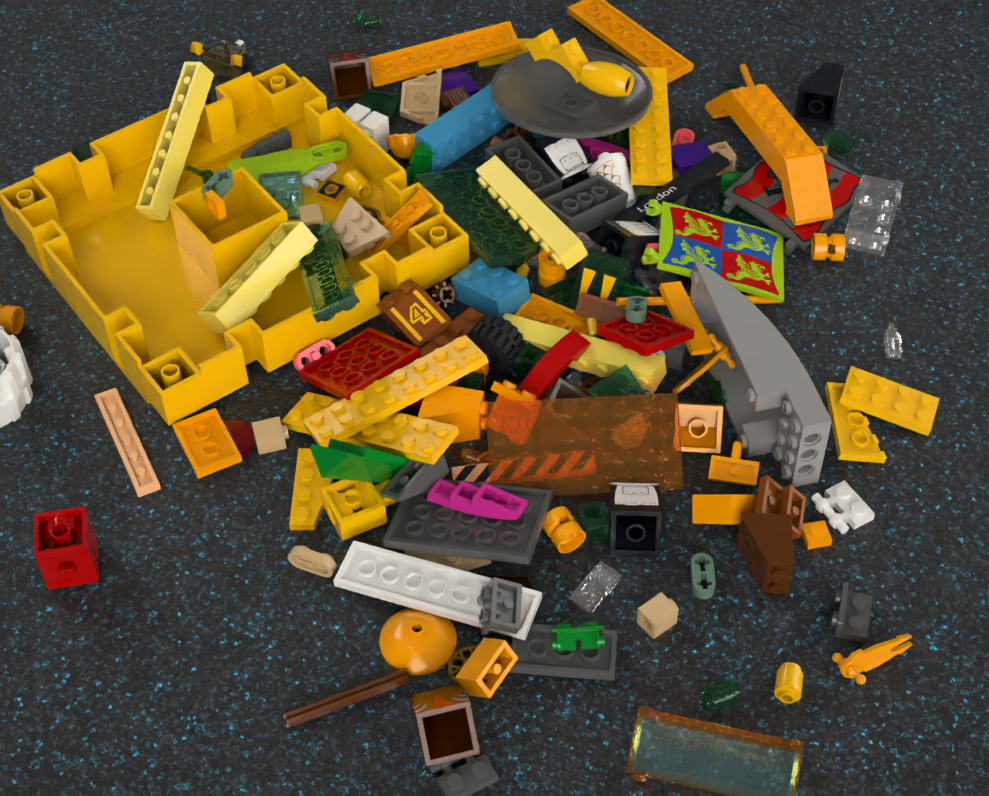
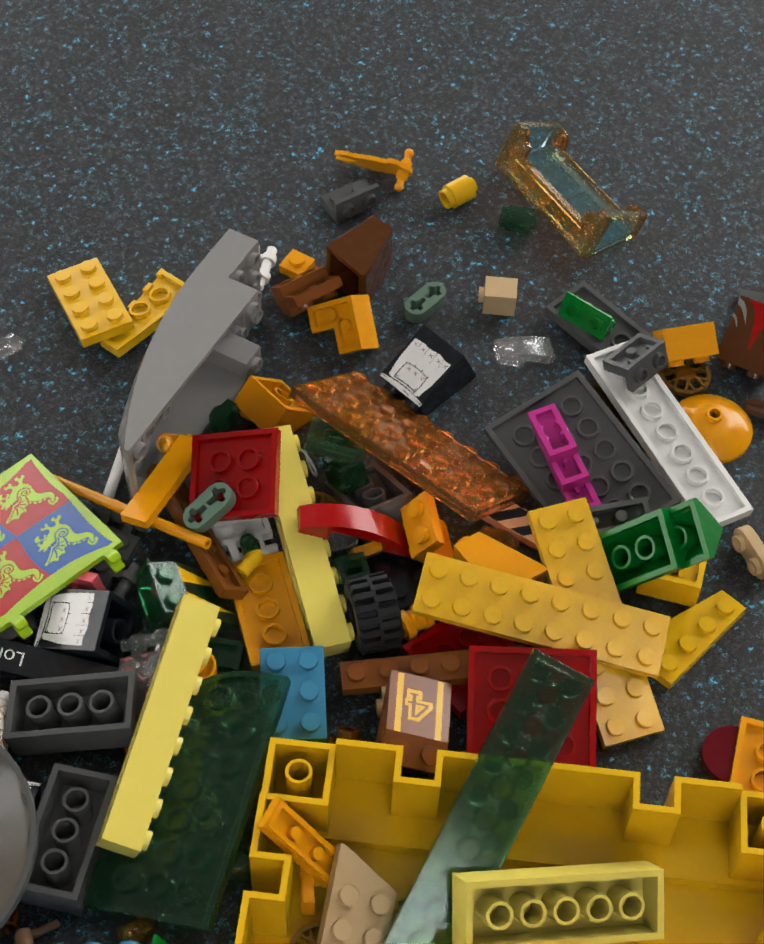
camera: 140 degrees left, 5 degrees up
(270, 435) = (690, 719): tan brick -> none
(563, 530) = (499, 400): light orange wheel -> none
(593, 521) = (464, 403): clear green brick -> none
(734, 469) = (295, 347): light orange plate -> none

